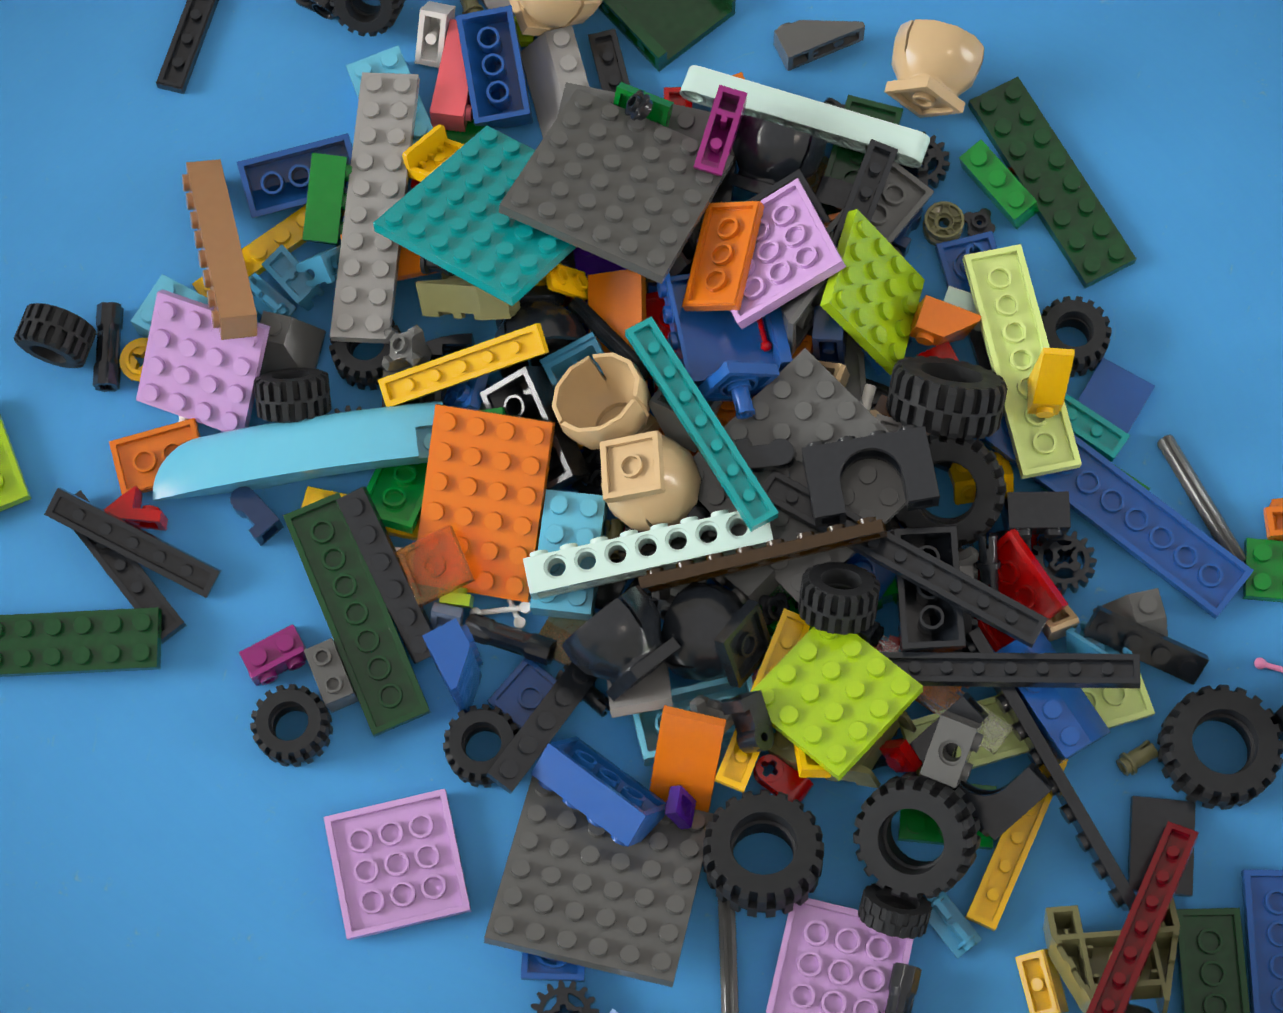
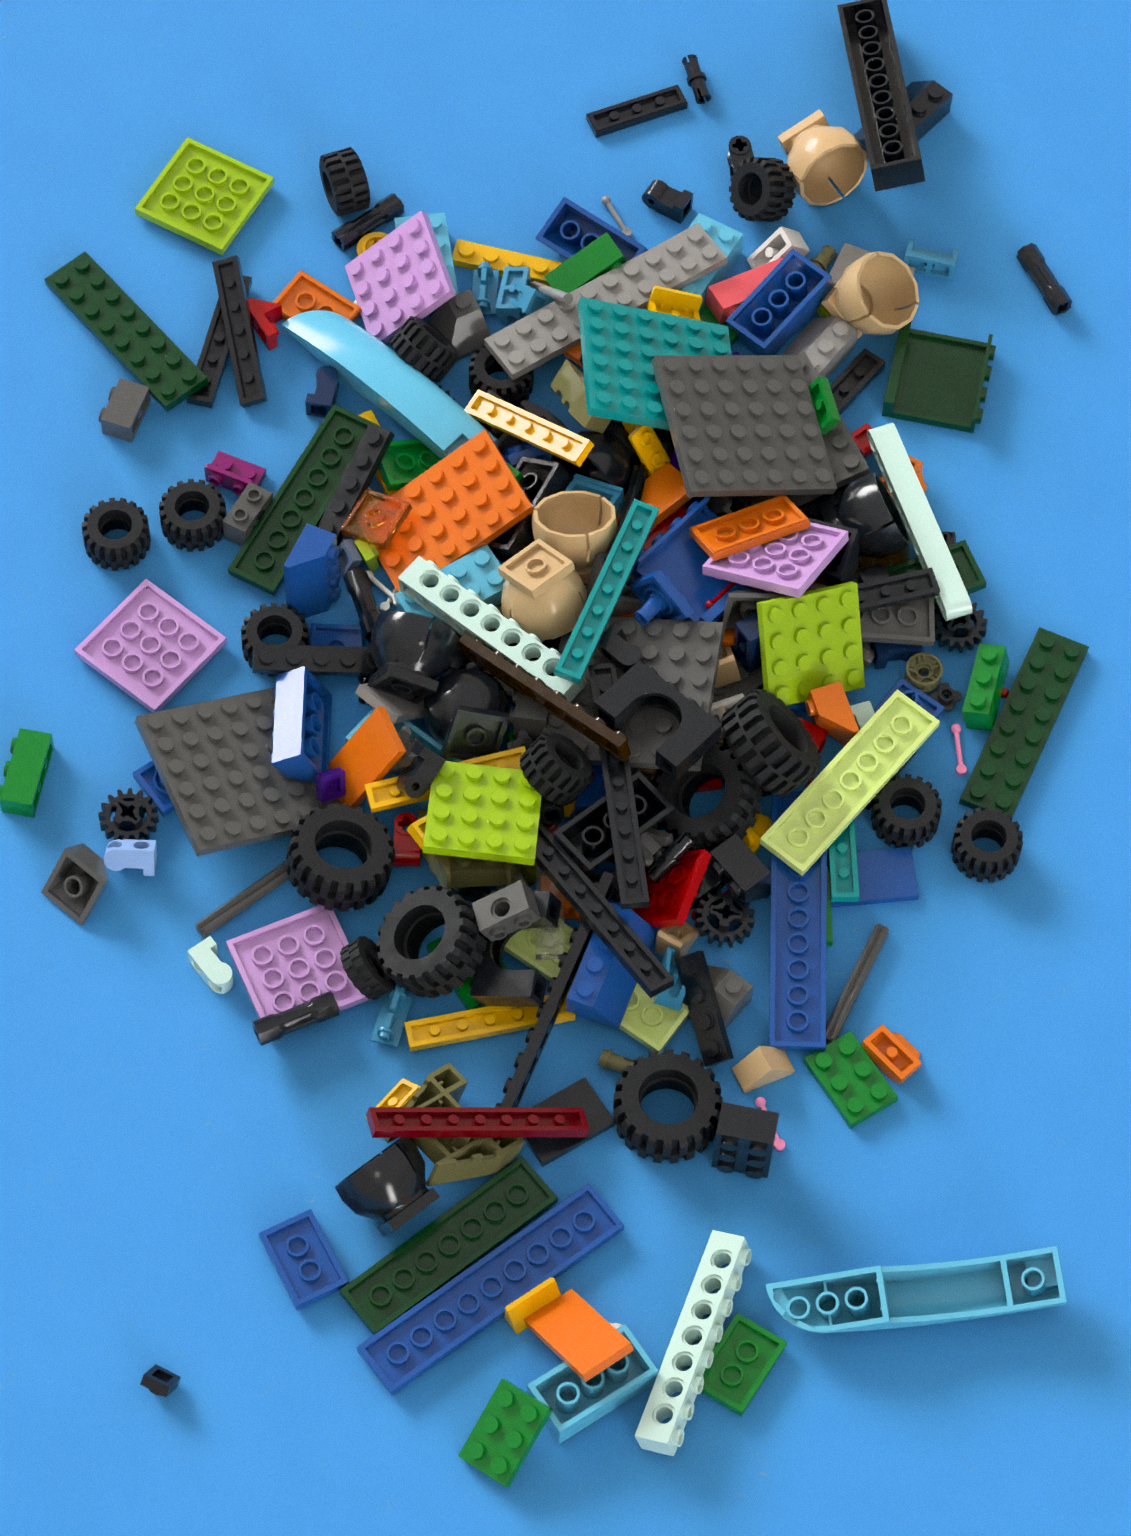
camera: 45 degrees right, 10 degrees down
(125, 706) = (125, 410): none -> dark grey brick
(220, 250) = (488, 229): medium nougat brick -> none
(237, 793) = (113, 516): none -> black tyre
(302, 139) = (606, 200): none -> light grey hinge
(303, 82) = (668, 201): none -> black leg
(328, 244) = (552, 292): none -> light grey bar
(406, 348) = (514, 389): dark grey rock -> none
(638, 106) = (815, 397): black plate -> none
(721, 130) = (844, 461): magenta slope -> none
(812, 39) = (991, 492): dark grey slope -> none
(900, 756) = (479, 890): red plate -> none
(933, 67) = (1033, 577): tan plate -> none
(1049, 382) = (836, 796): yellow slope -> none
(1054, 262) = (961, 769): none -> bright pink hinge
(1154, 274) = (986, 825): none -> black tyre
(1230, 639) = (762, 1067): none -> tan slope

